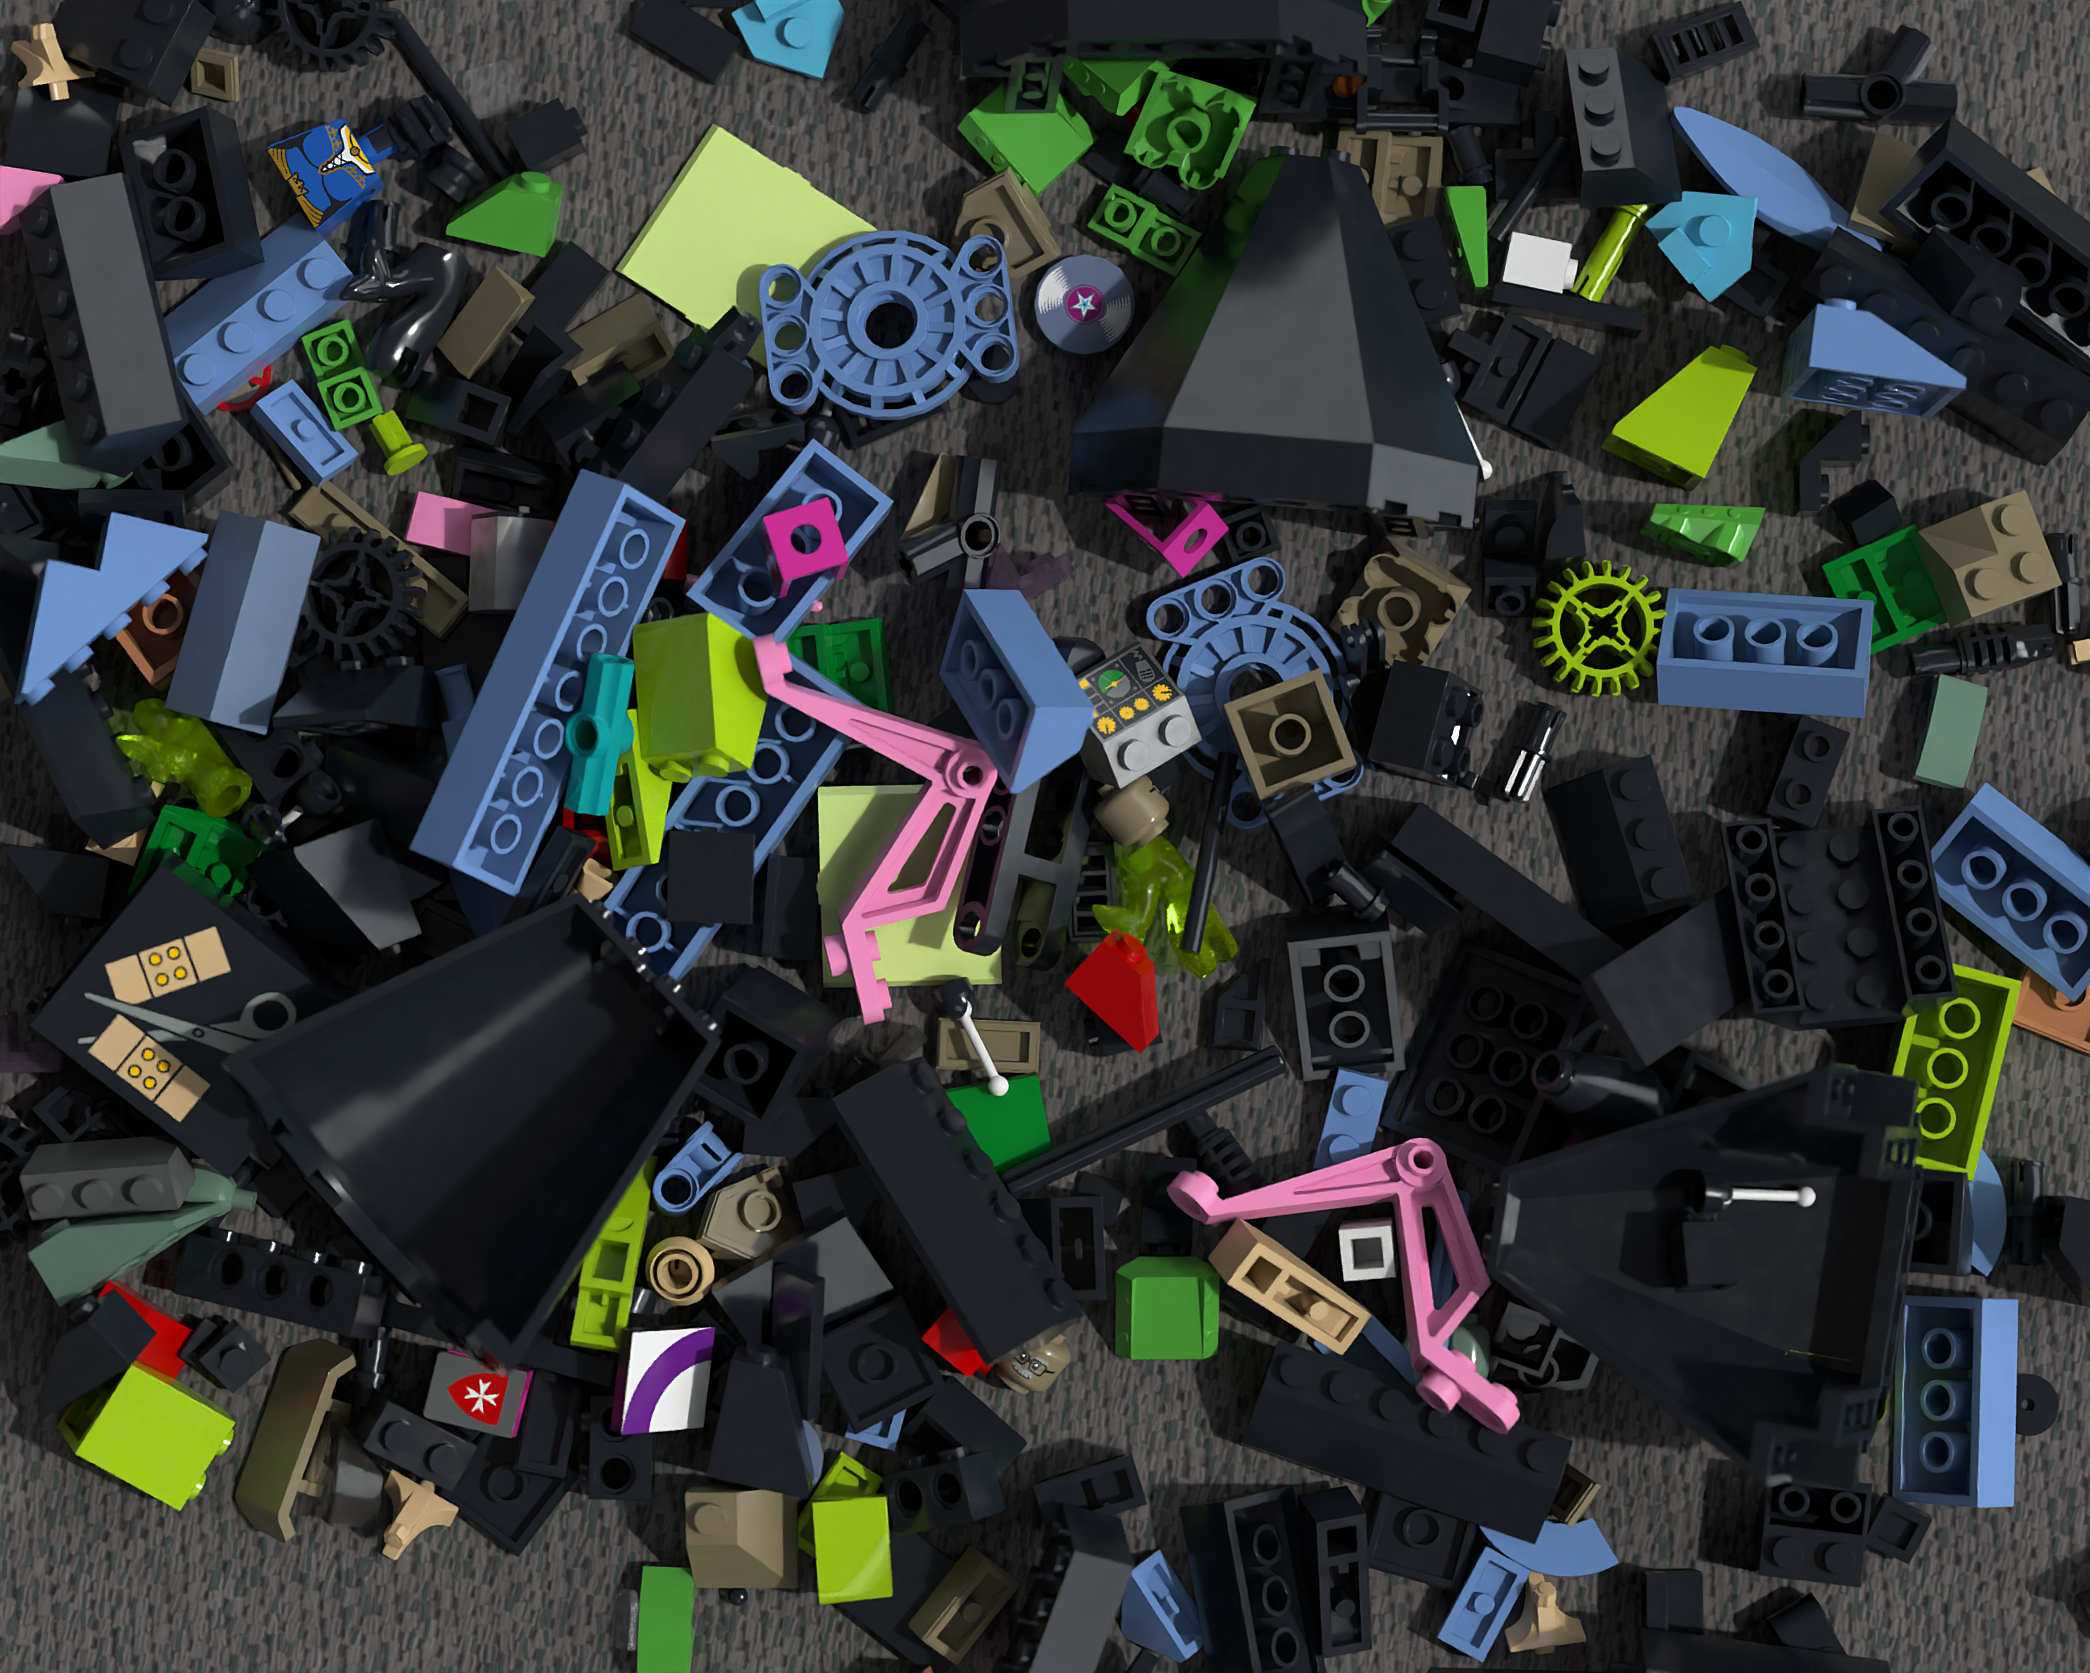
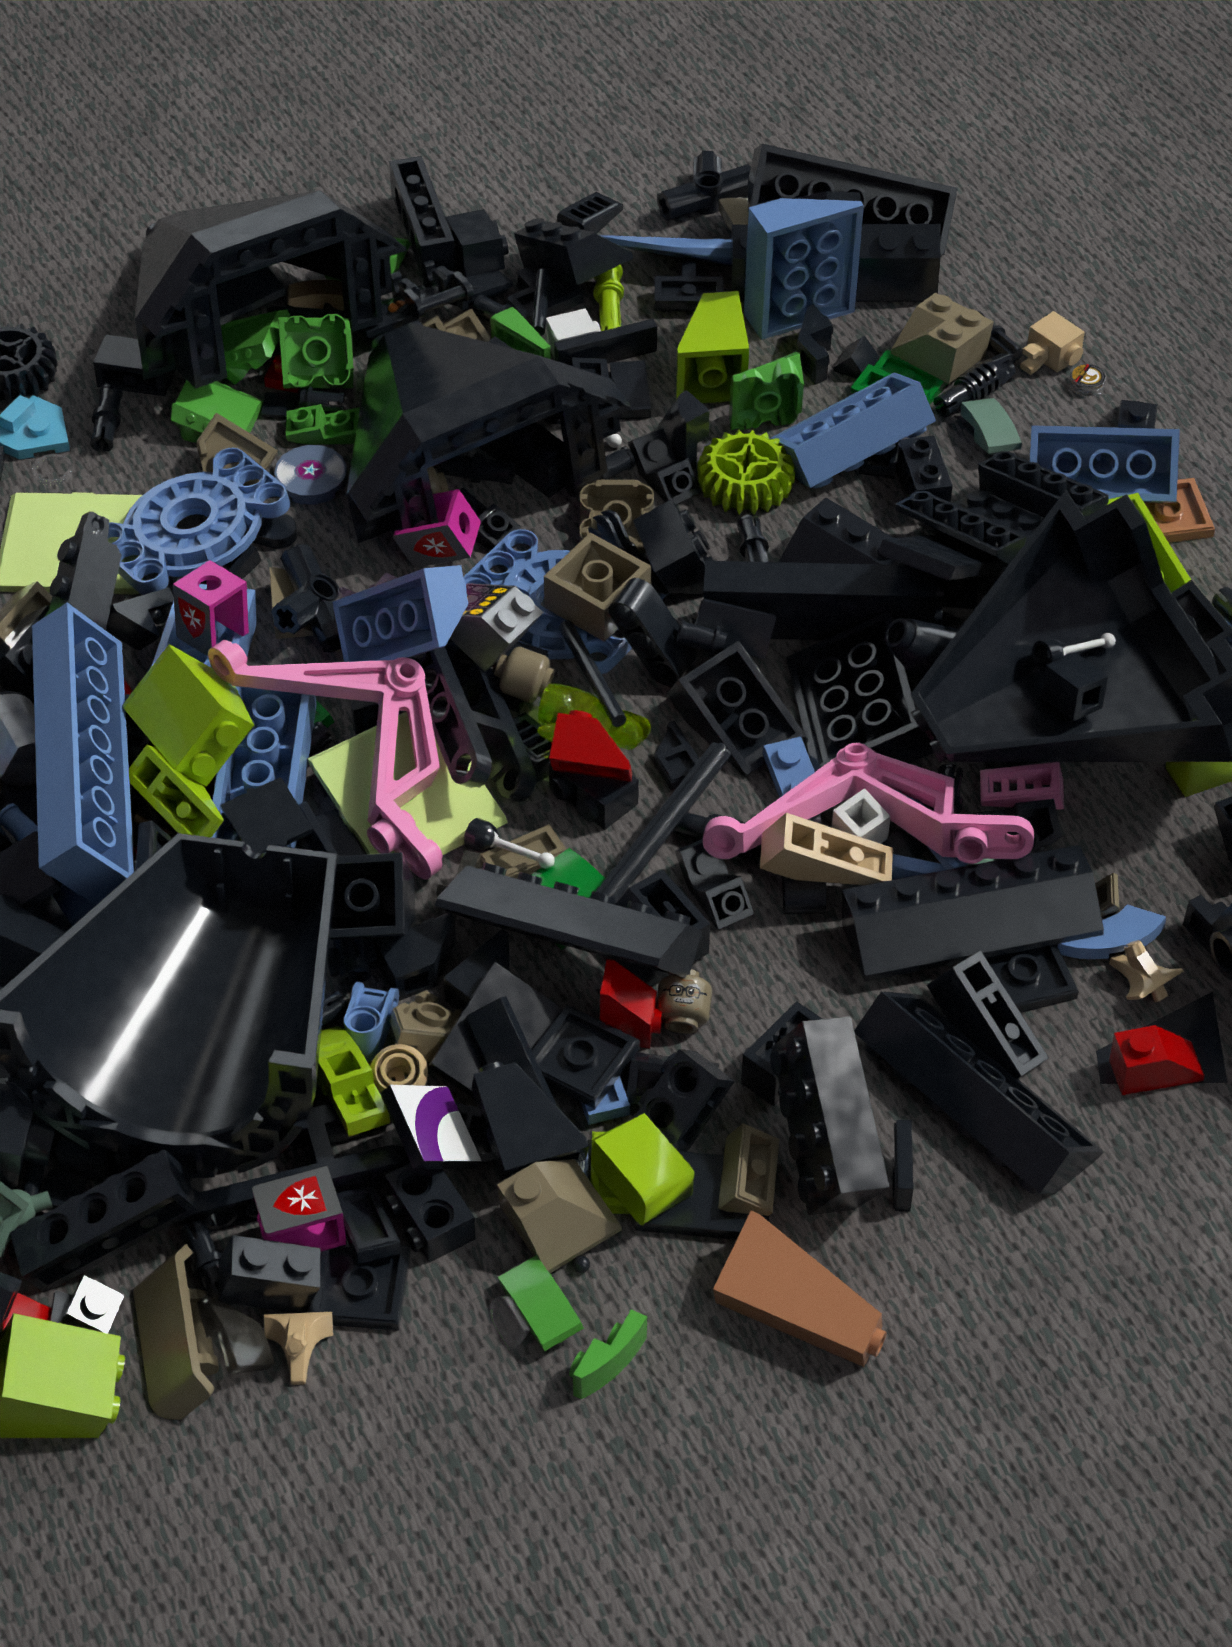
camera: 30 degrees left, 35 degrees down
(599, 733) = (135, 760): teal piece -> none
(1160, 1611) = (893, 1106): medium blue slope -> none
(1166, 1309) = (755, 925): bright green slope -> none
(1483, 1603) = (1099, 986): medium blue plate -> none
(1707, 238) = (661, 272): medium azure plate -> none

